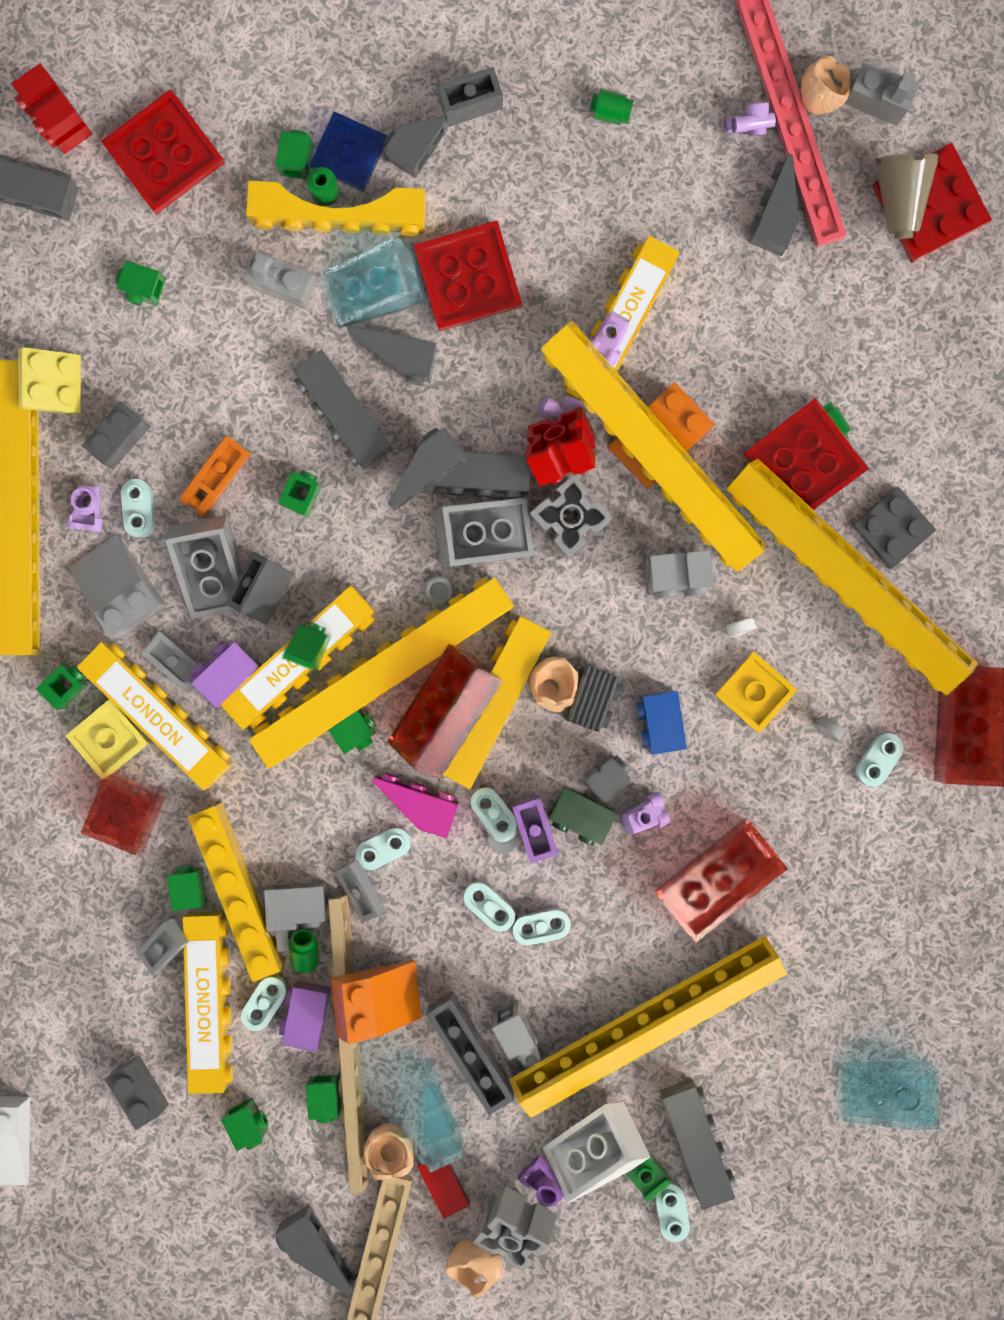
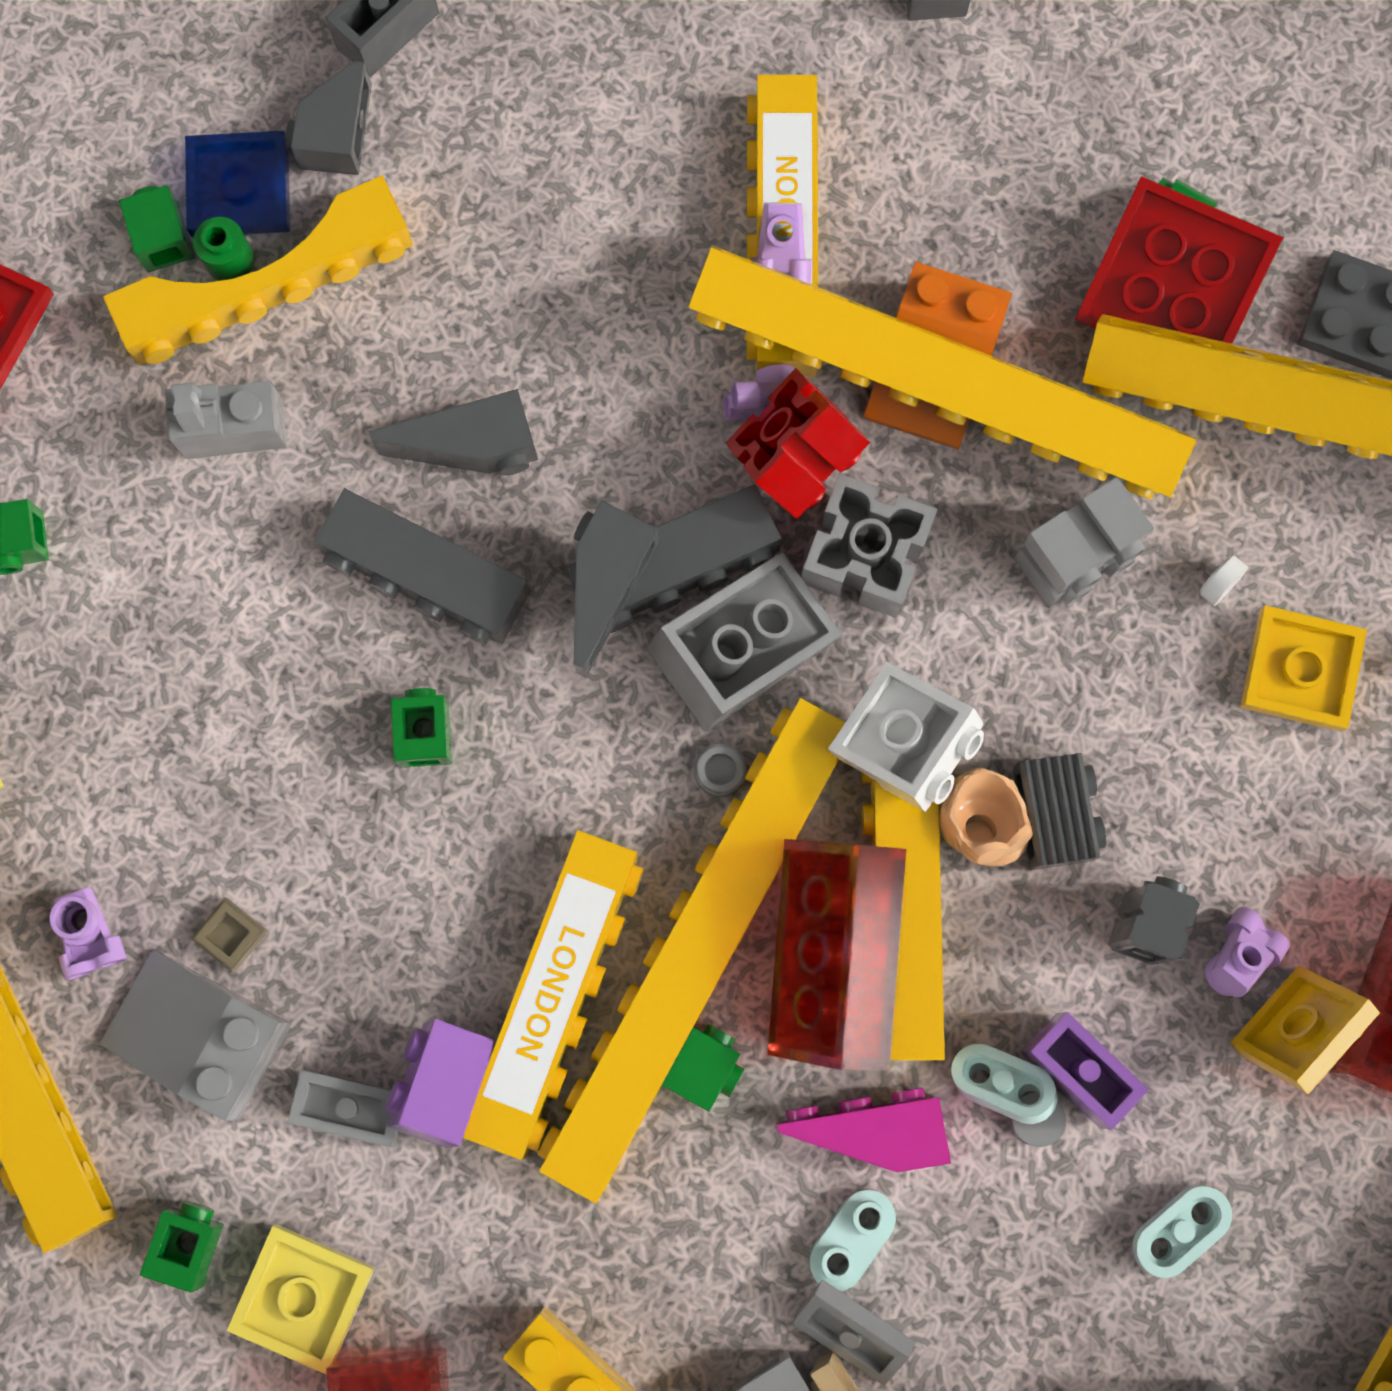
camera: 25 degrees left, 10 degrees down
(116, 435) = (78, 788): dark grey brick -> none
(139, 507) = (168, 887): light aqua plate -> none
(154, 546) = (229, 935): none -> dark tan tile
(155, 715) = (361, 1213): brick -> none
(204, 564) = (328, 924): light grey slope -> none
(215, 476) = (270, 773): orange plate -> none
(259, 588) = (432, 912): dark grey brick -> none
(307, 646) = (561, 959): green slope -> none
(375, 283) = (376, 353): clear light blue slope -> none
(468, 276) = (513, 272): red plate -> none
(487, 907) = (1077, 1243): light aqua plate -> none
(535, 625) = (909, 737): none -> white plate
(582, 816) = (1146, 1008): dark green brick -> none
(651, 865) = (1304, 1028): none -> yellow plate
(662, 722) = (1187, 791): blue brick -> none

